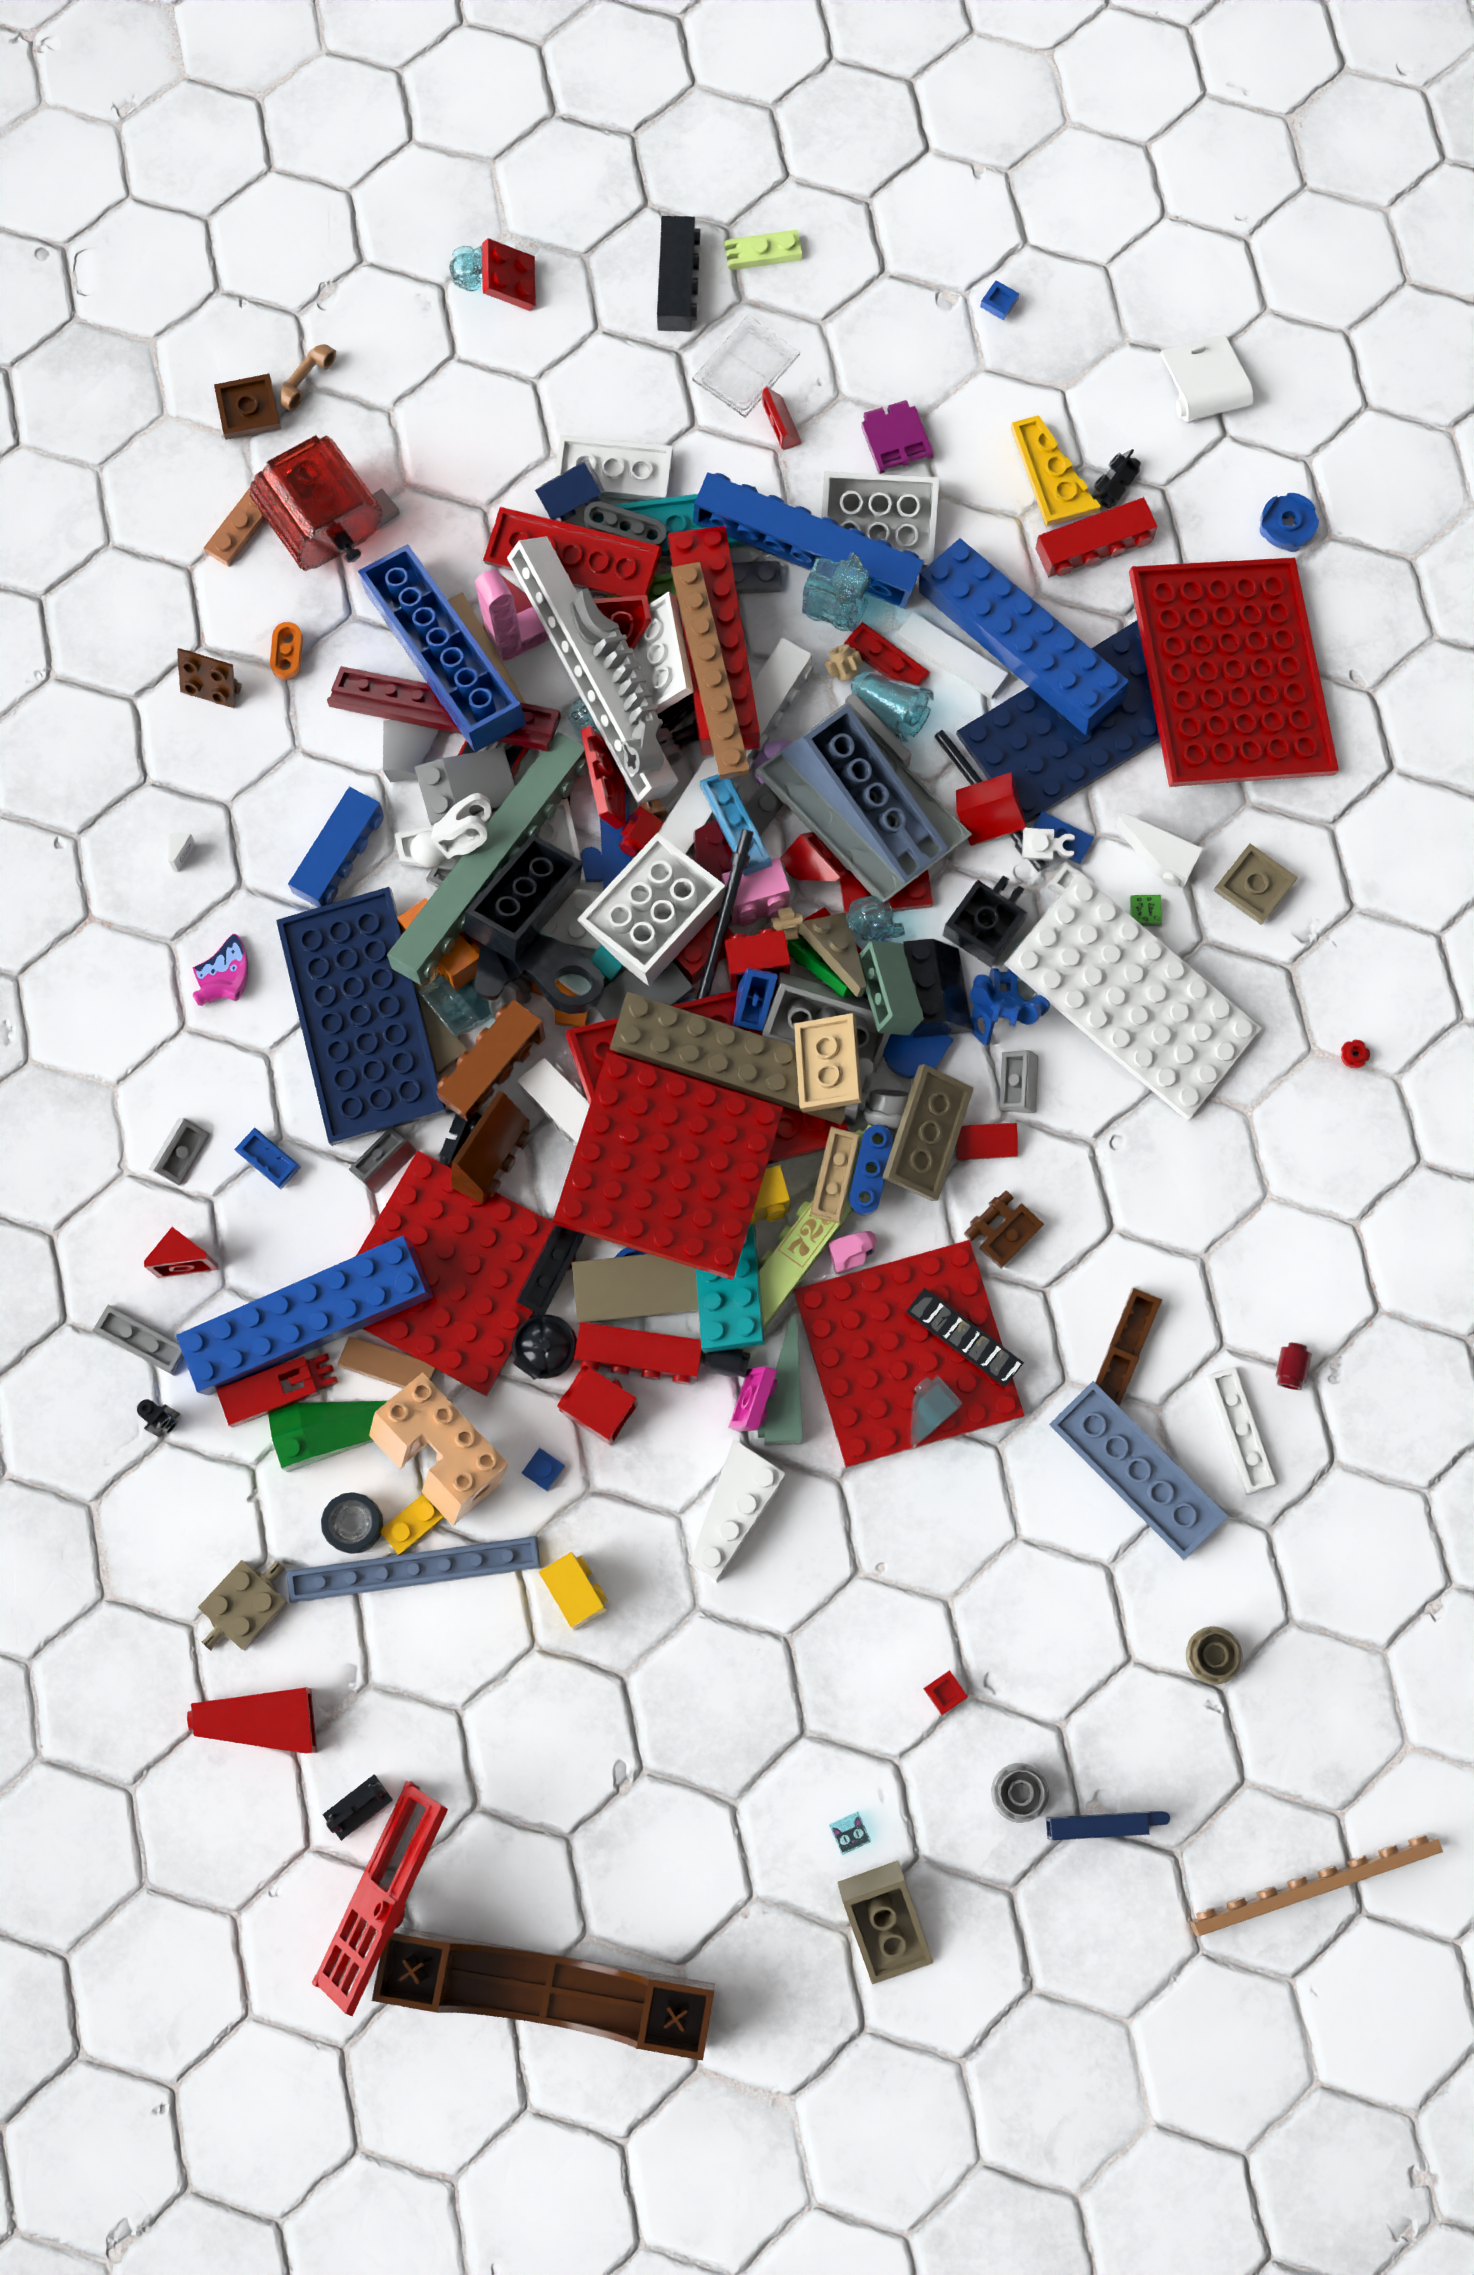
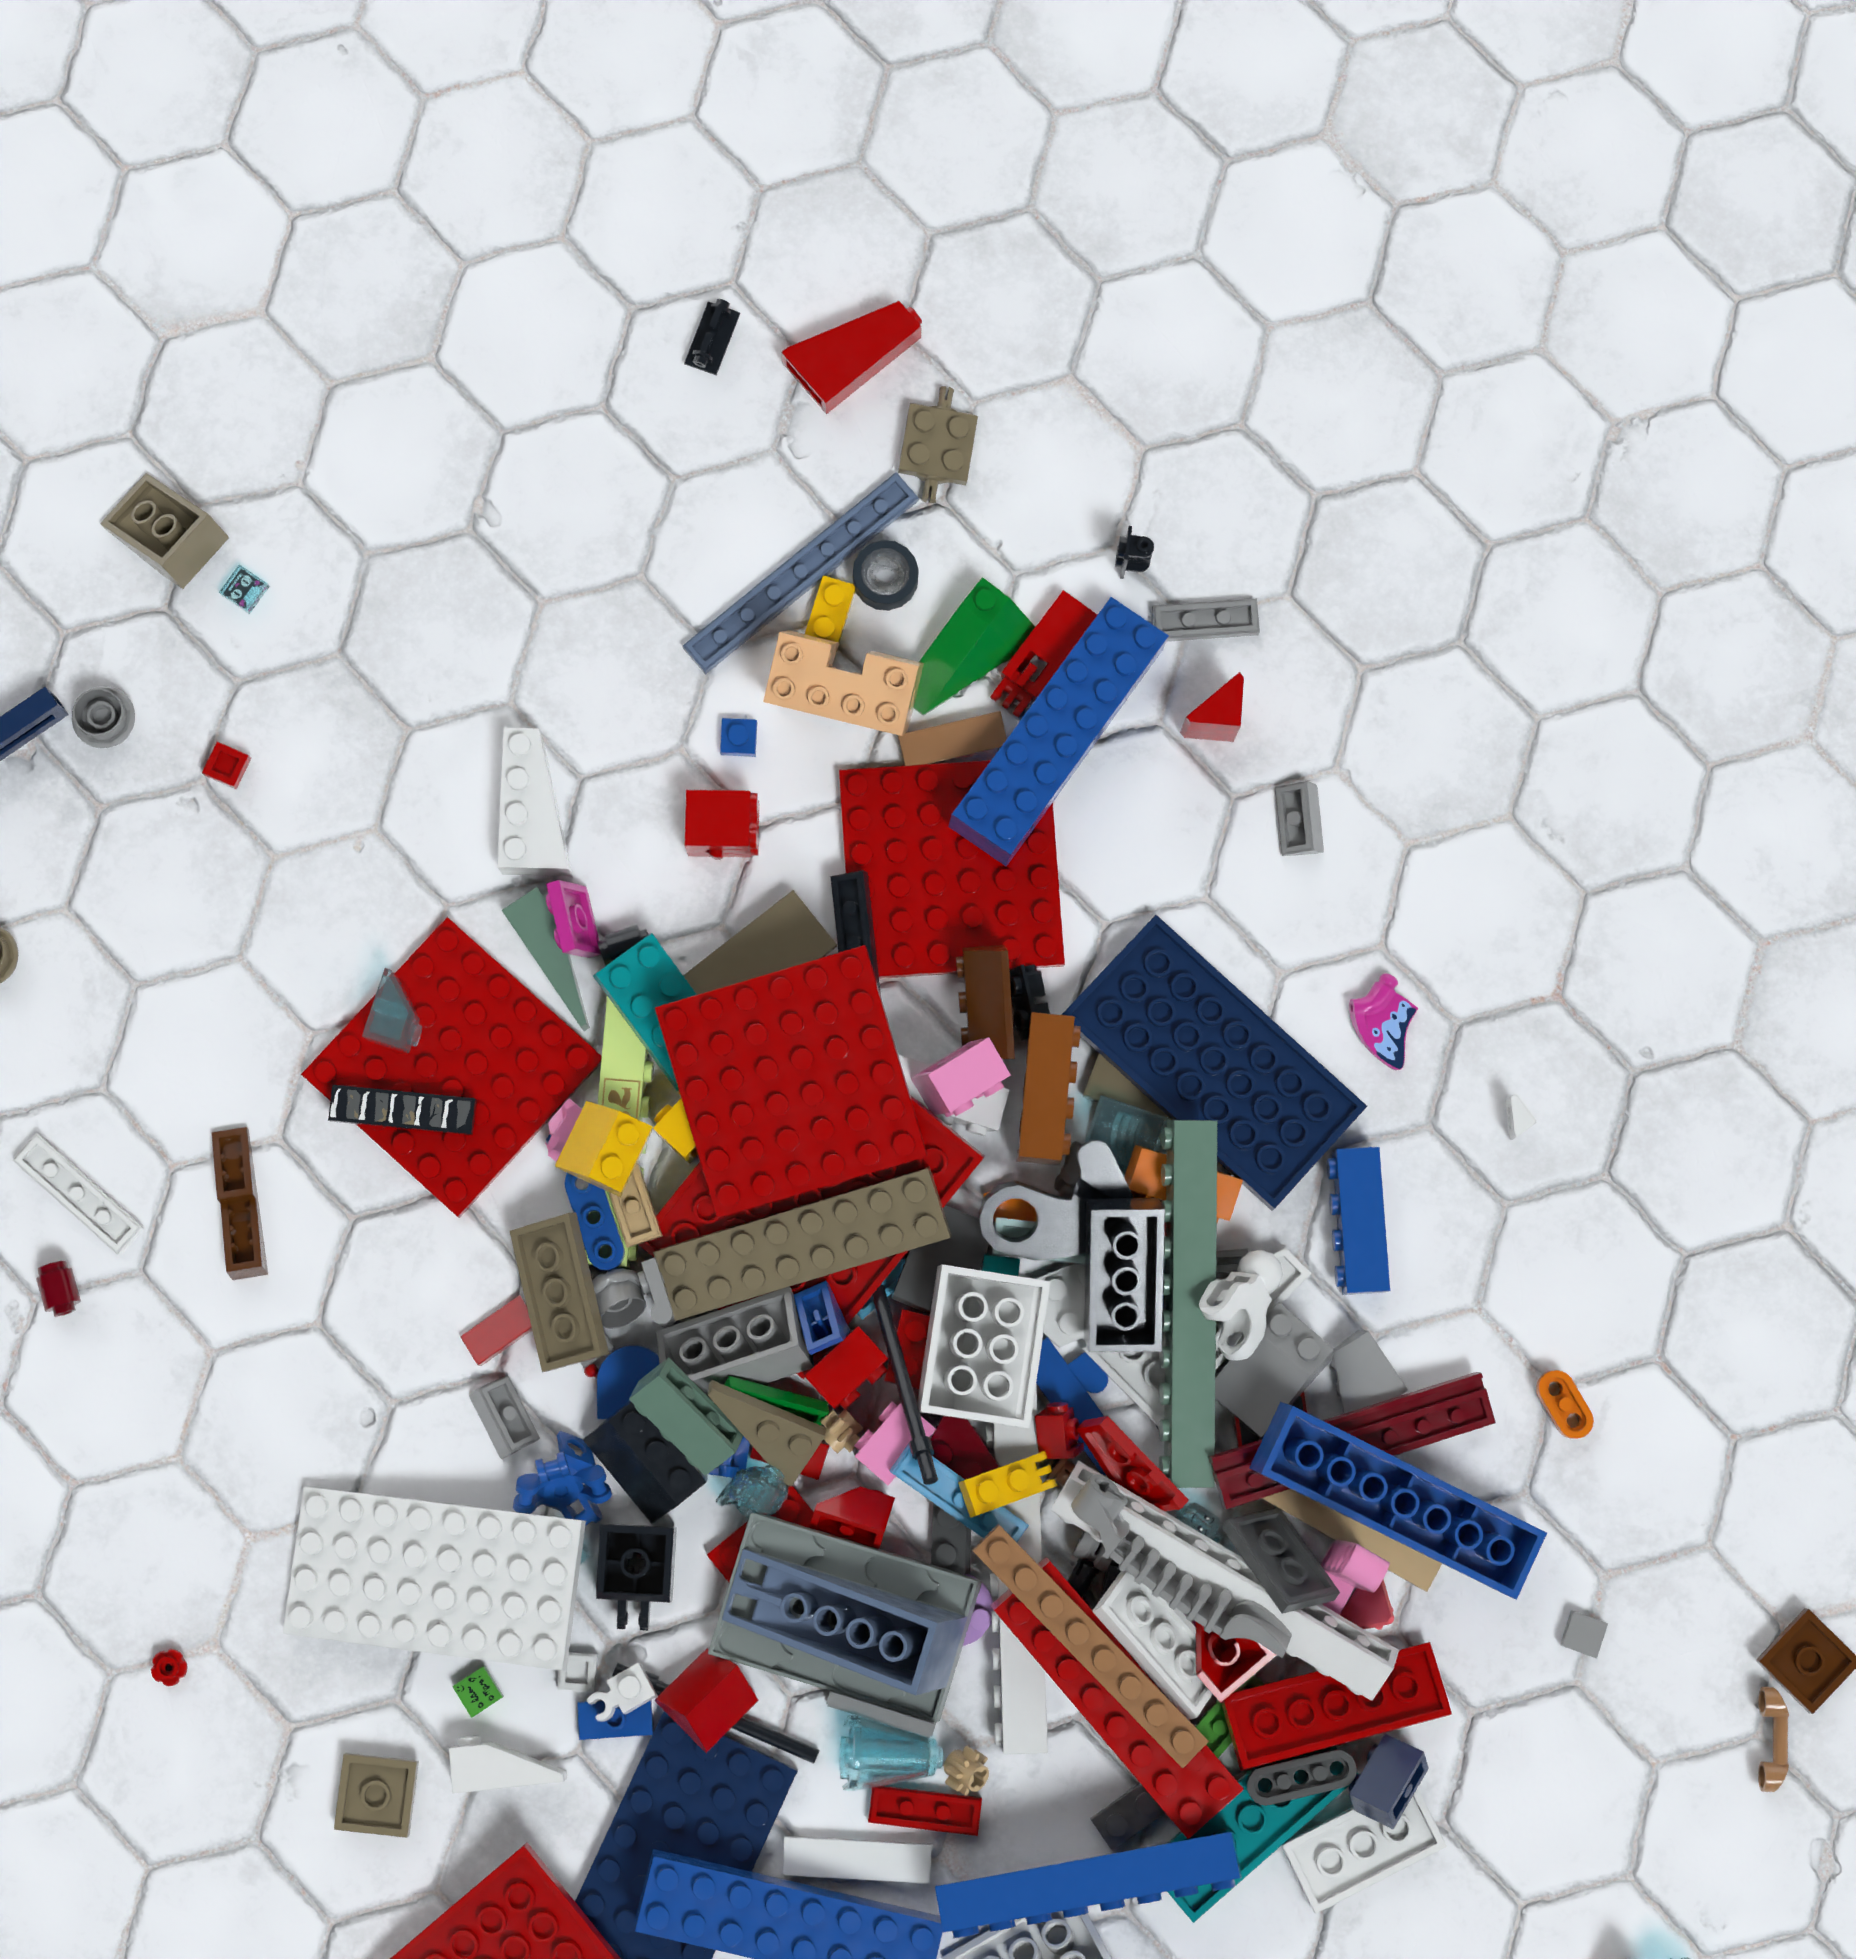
camera: 145 degrees right, 5 degrees up
(207, 678) = (1627, 1313): reddish brown hinge -> none
(235, 531) = (1716, 1520): nougat plate -> none
(267, 1158) = (1206, 864): blue plate -> none
(316, 503) = (1643, 1580): clear red piece -> none
(377, 1904) = (630, 256): red door -> none
(383, 1160) = (1094, 934): flat silver slope -> none
(520, 1984) = (341, 320): reddish brown arch -> none
(544, 1346) = (811, 848): black piece -> none
(545, 658) = (1280, 1560): none -> dark grey tile
(545, 1096) = (961, 1076): none -> bright pink brick
(573, 1591) = (632, 637): yellow brick -> none
(638, 1352) = (717, 900): red brick -> none
(697, 812) = (1005, 1485): none -> yellow hinge
(827, 1063) = (700, 1293): tan plate -> none
(833, 1206) = (604, 1147): none -> yellow slope
(837, 592) = (1020, 1840): clear light blue brick -> none
(1010, 1235) = (419, 1245): reddish brown plate -> none
(1138, 1470) = (157, 1088): sand blue plate -> none

